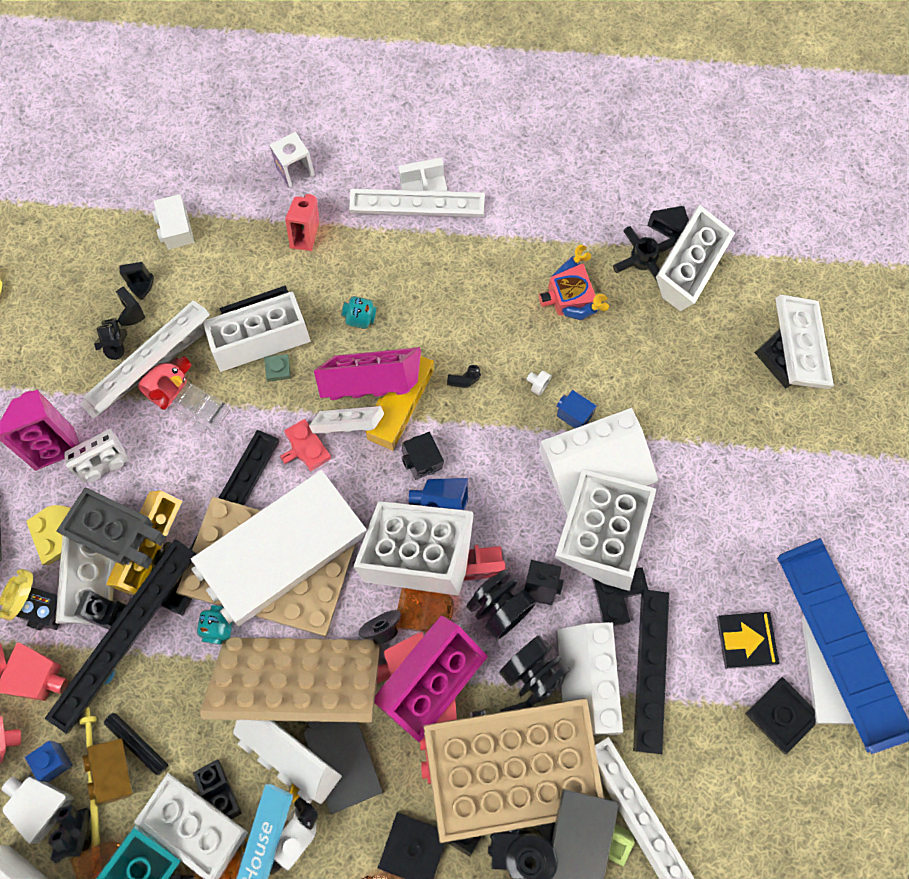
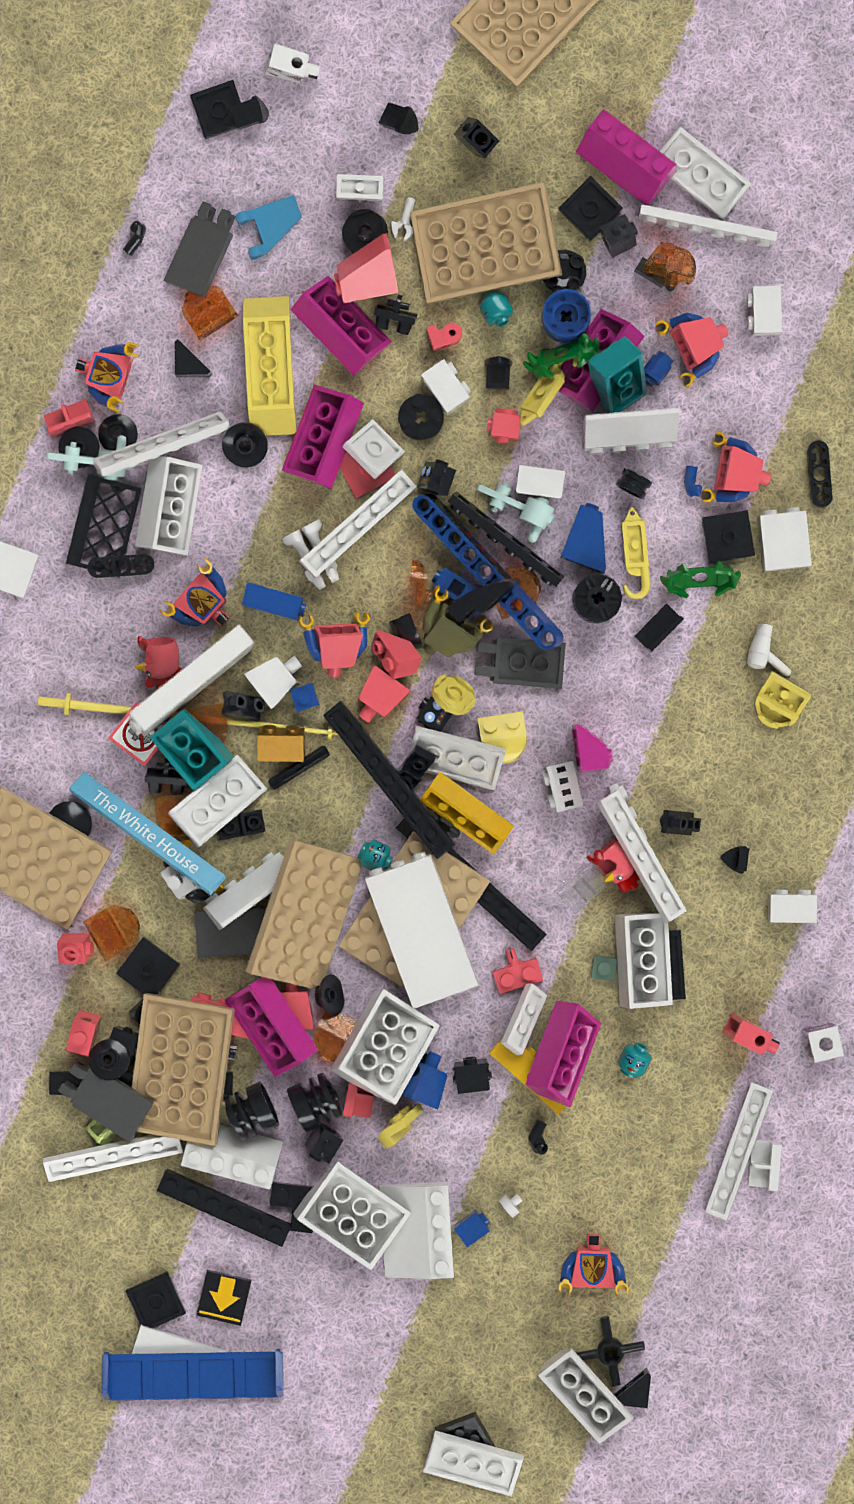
camera: 110 degrees right, 20 degrees up
(109, 528) = (481, 790): dark grey tile -> none
(132, 313) = (708, 848): black tile -> none
(493, 509) = (399, 1125): none -> light yellow slope

